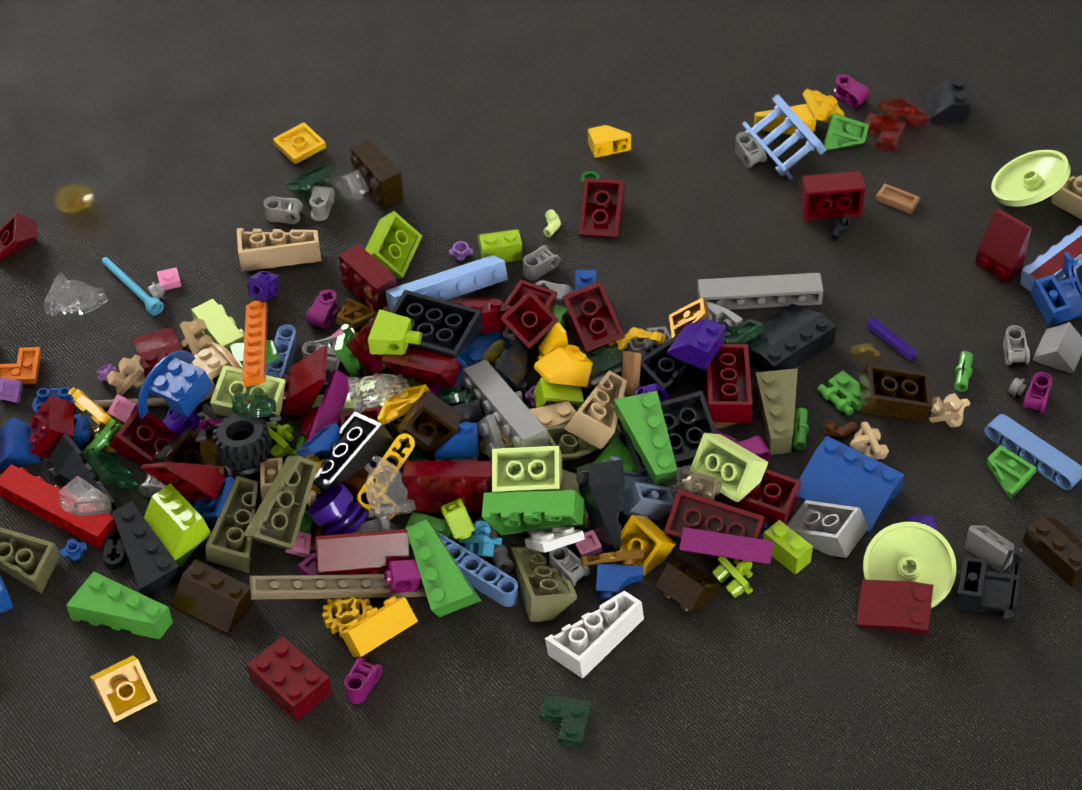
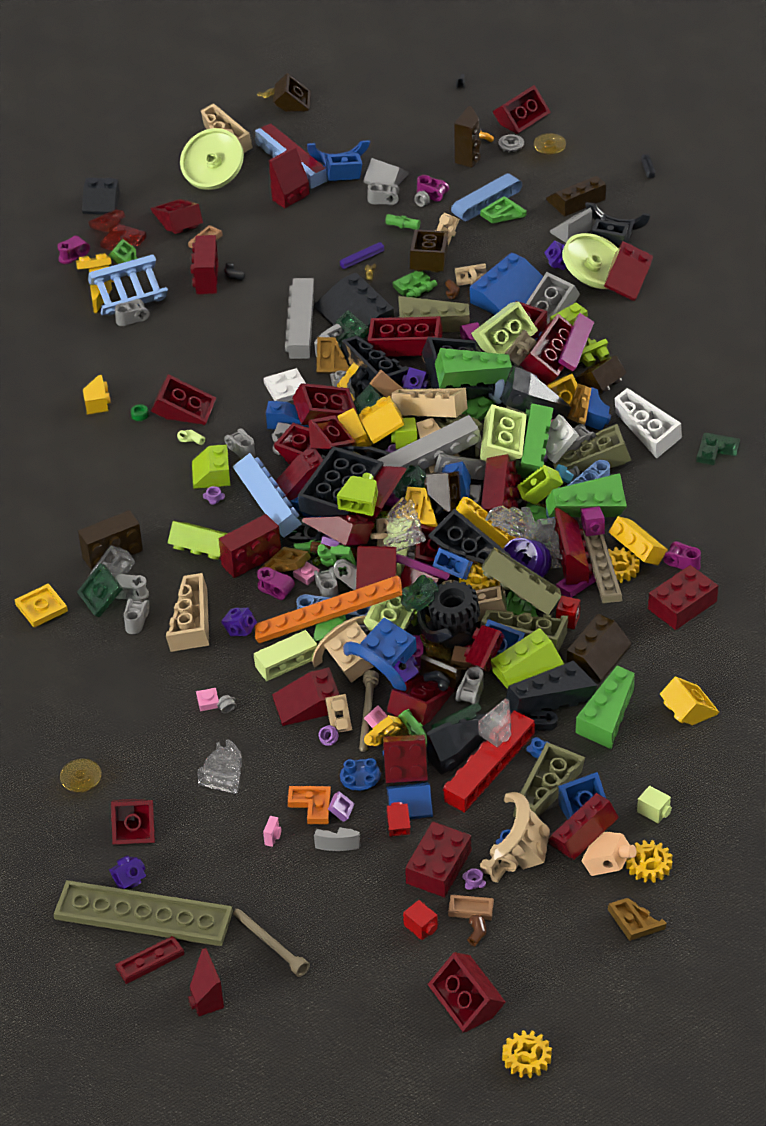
camera: 85 degrees left, 5 degrees down
(152, 305) = (243, 707): medium azure piece -> none
(192, 330) = (291, 664): tan hips -> none
(268, 562) = (569, 607): none -> red brick
(644, 293) = (283, 385): none -> white plate
(698, 342) = (374, 336): dark purple slope -> none
(930, 166) = (178, 215): none -> dark red slope

